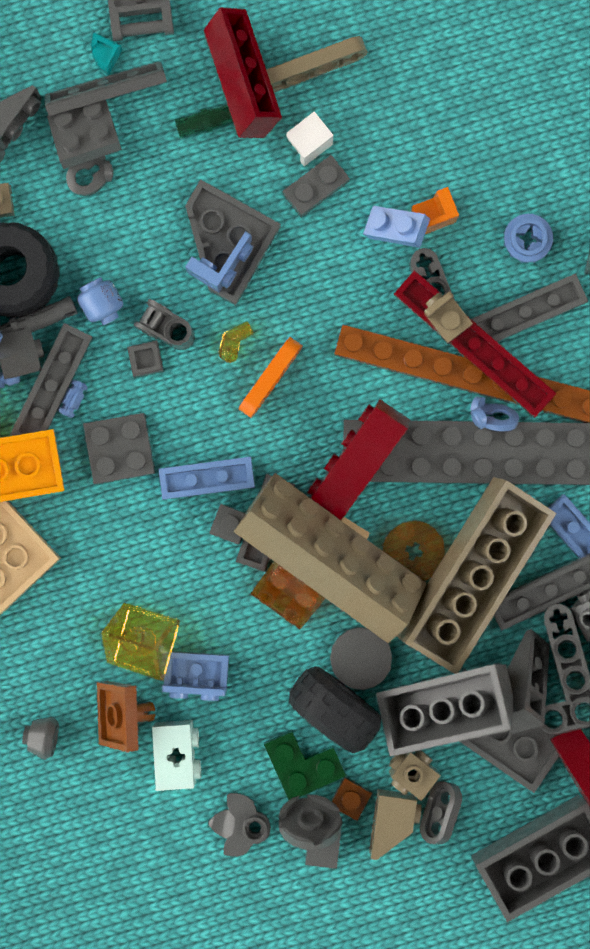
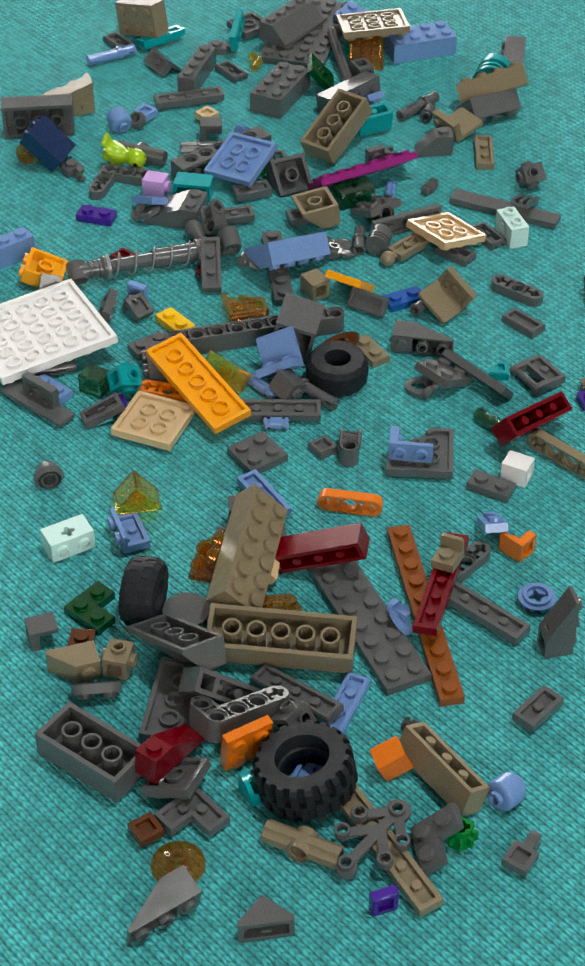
camera: 65 degrees right, 45 degrees down
(100, 301) = (345, 412): medium blue head -> none
(120, 715) = (82, 499): dark orange tile -> none
(231, 340) = (361, 479): clear yellow arm -> none
(235, 822) = (33, 590): dark grey plate -> none
(310, 822) = (56, 609): dark grey tile -> none

